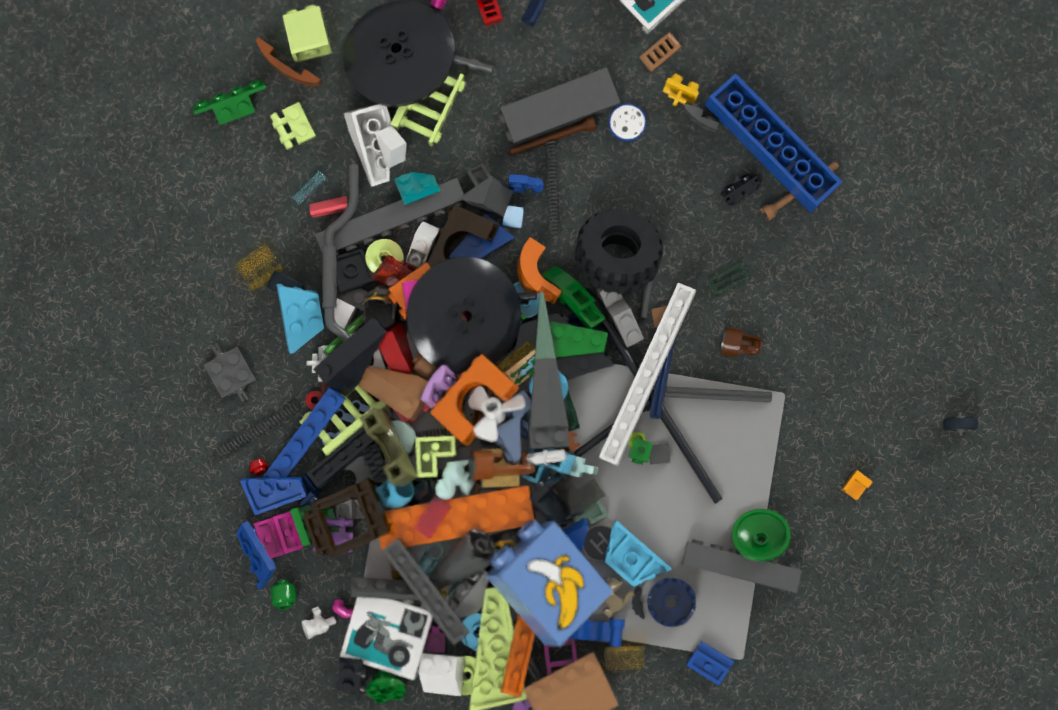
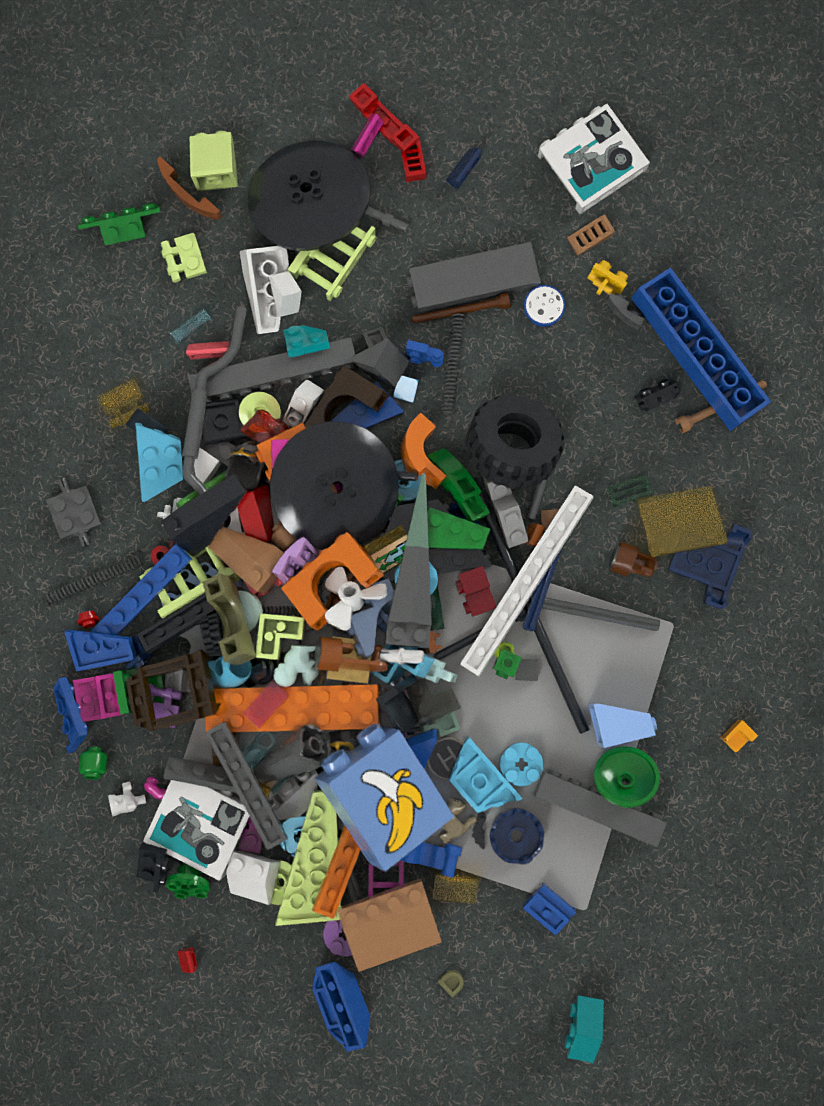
camera: 10 degrees right, 0 degrees up
(603, 390) = (476, 591): none -> dark red brick
(648, 331) = (534, 534): none -> dark orange tile
(675, 545) = (530, 755): none -> medium azure plate
(747, 490) = (620, 725): none -> light blue slope
(778, 300) = (681, 521): none -> clear yellow piece
(810, 333) = (714, 565): none -> dark blue piece

